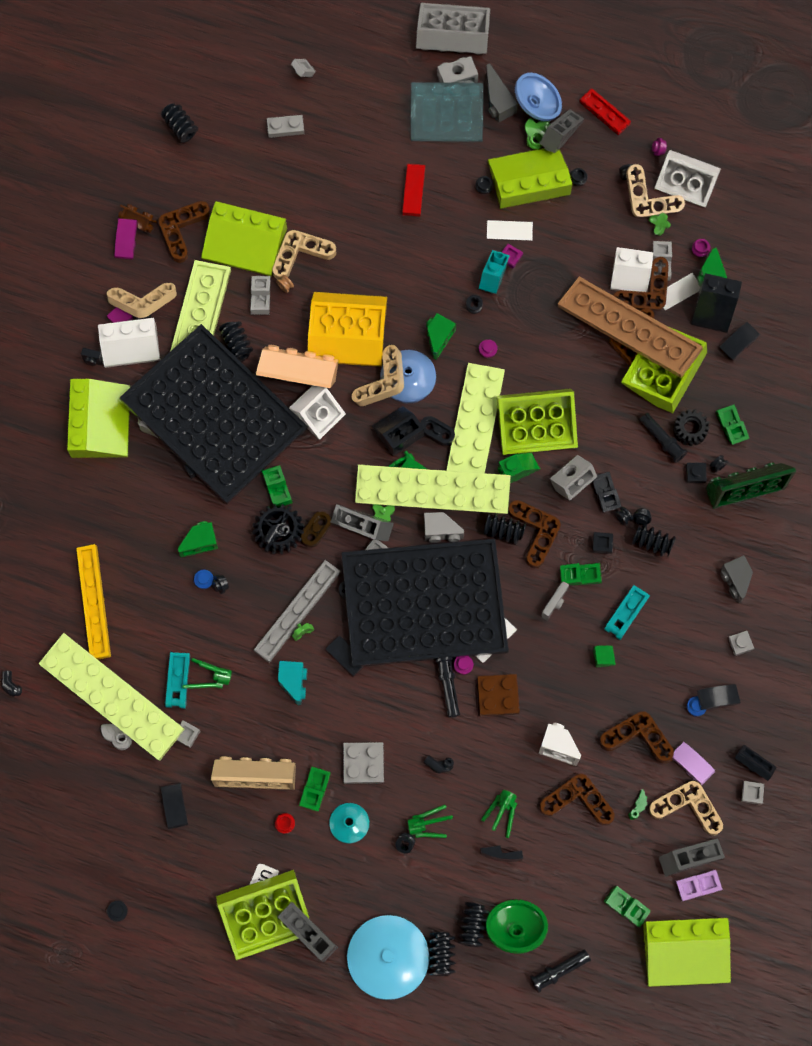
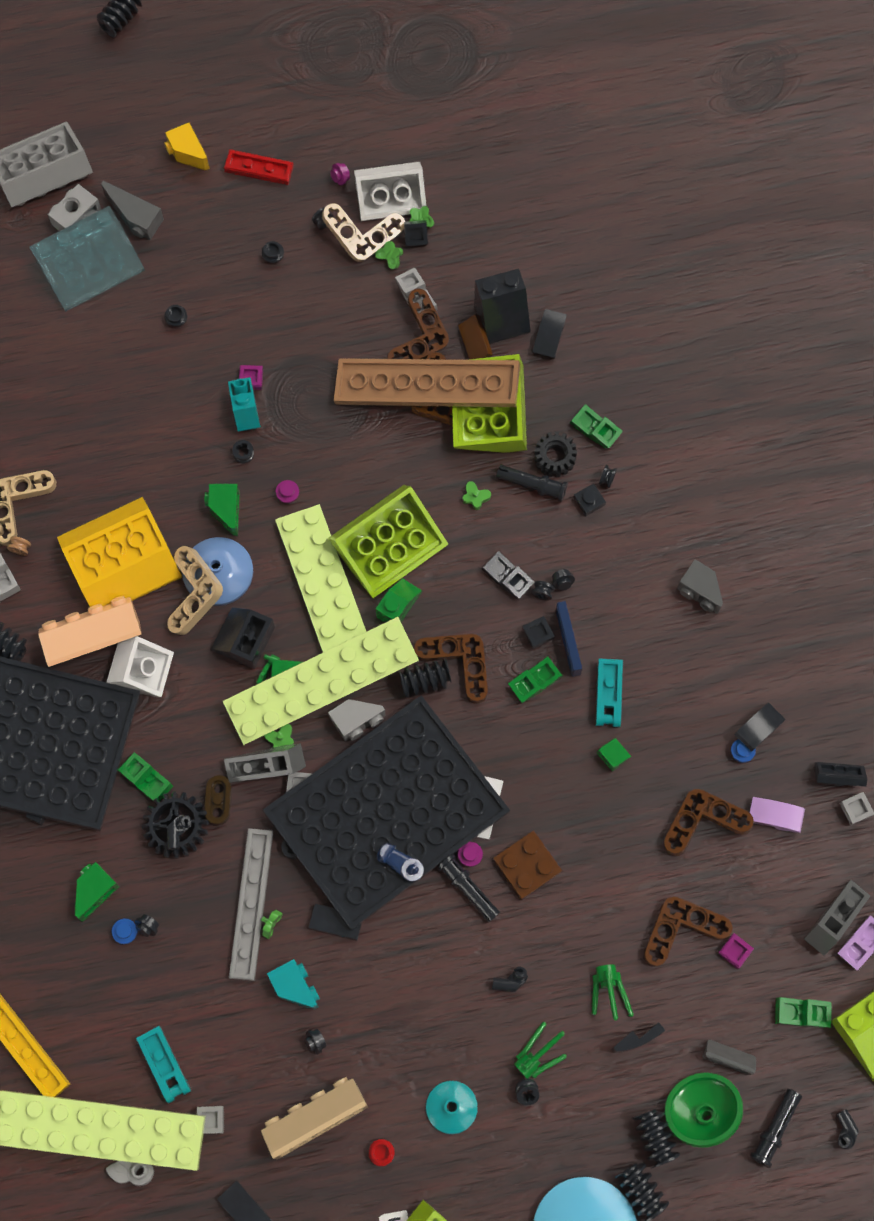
camera: 30 degrees left, 0 degrees up
(220, 675) = (208, 1029): green plant -> none
(284, 724) = (314, 1041): none -> black plate
(315, 788) = (391, 1092): green slope -> none
(363, 763) = (427, 1030): light grey plate -> none
(413, 190) = (101, 363): red tile -> none
(413, 644) = (406, 866): none -> dark blue piece
(438, 430) = (287, 612): black plate -> none
(509, 230) = (232, 350): white sticker -> none
(530, 177) = (220, 280): lime slope -> none
(535, 131) = (203, 226): bright green plate -> none
(538, 97) = (178, 189): medium blue dish -> none
(556, 601) = (528, 725): light grey plate -> none
(557, 904) = (730, 1057): none -> dark grey slope
(559, 745) = (627, 880): white slope -> none
(561, 70) = (186, 147): none -> yellow slope
(561, 131) = (225, 213): dark grey slope -> none
(573, 477) = (465, 579): light grey brick -> none
(606, 837) = (736, 951): none -> magenta tile
(609, 1002) = (849, 1130): none -> black arm
(616, 425) = (475, 496): none -> bright green piece
(621, 559) = (568, 639): none -> dark blue tile
(631, 270) = (390, 321): white slope -> none
(640, 805) = (750, 894): piece -> none
(654, 540) = (591, 597): black piece -> none
(681, 290) = (455, 313): white sticker -> none
(684, 315) = (475, 338): none -> reddish brown tile
(687, 218) = (416, 233): none -> black plate
(693, 801) = (803, 855): tan beam -> none
(697, 208) = (421, 214): none -> bright green piece
(701, 247) = (449, 257): magenta plate -> none
(712, 266) = (473, 270): green slope -> none
(741, 643) = (746, 655): light grey plate -> none
(749, 484) = (654, 479): dark green slope -> none

